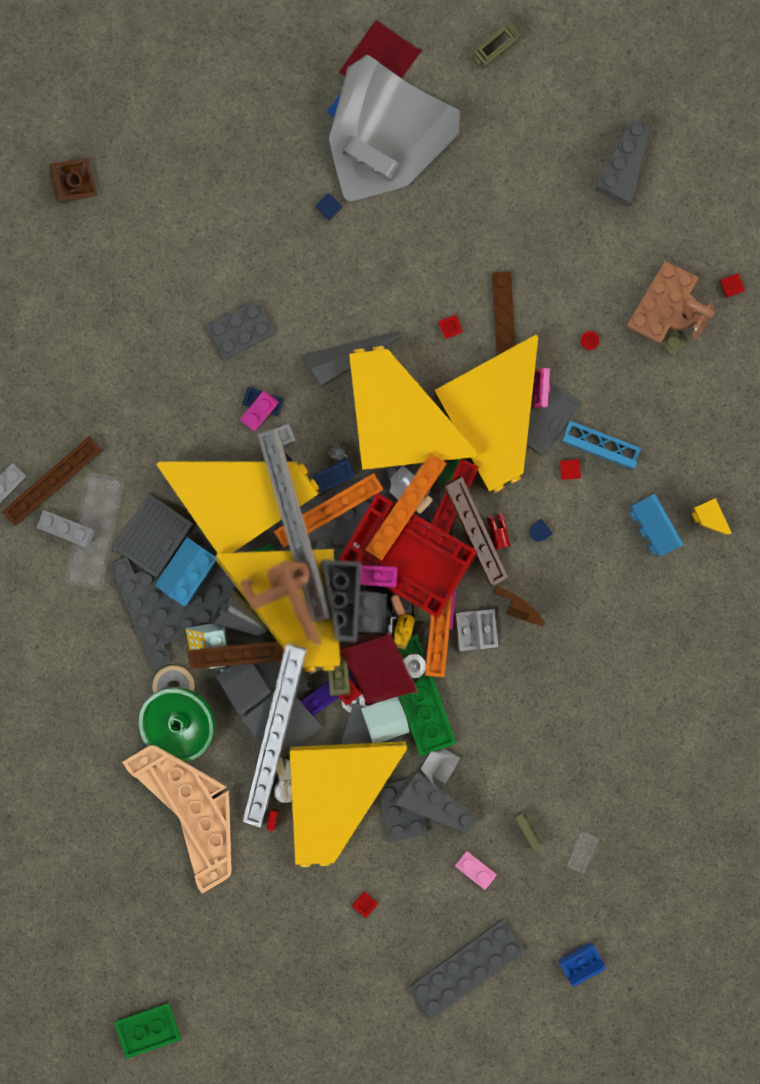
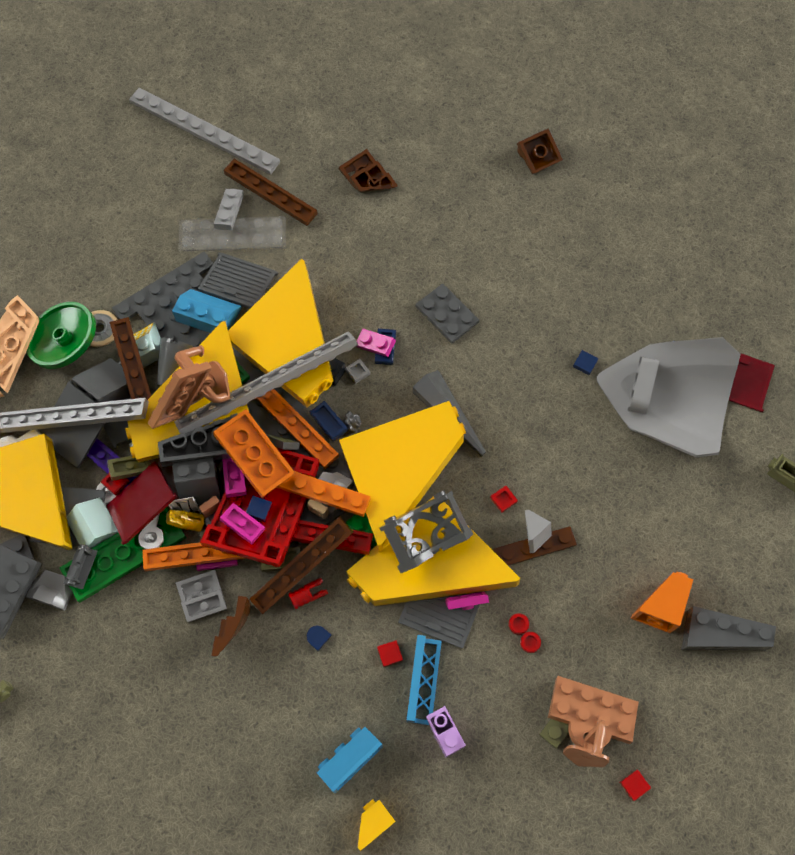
camera: 75 degrees right, 20 degrees down
(58, 367) = (368, 173): none -> reddish brown slope
(348, 525) = (284, 443): none -> dark grey tile
(366, 551) = (253, 453): none -> orange plate
(414, 559) = (259, 508): none -> dark blue tile
(426, 735) = (80, 567): none -> dark grey hinge
(428, 576) = (242, 523): none -> dark pink plate
(492, 305) = (537, 530): none -> light grey slope
(498, 426) = (408, 555): none -> dark grey fence
(571, 346) = (518, 624): none -> red tile
(587, 208) = (666, 604): none -> orange slope
(652, 436) = (445, 731): none -> lavender slope

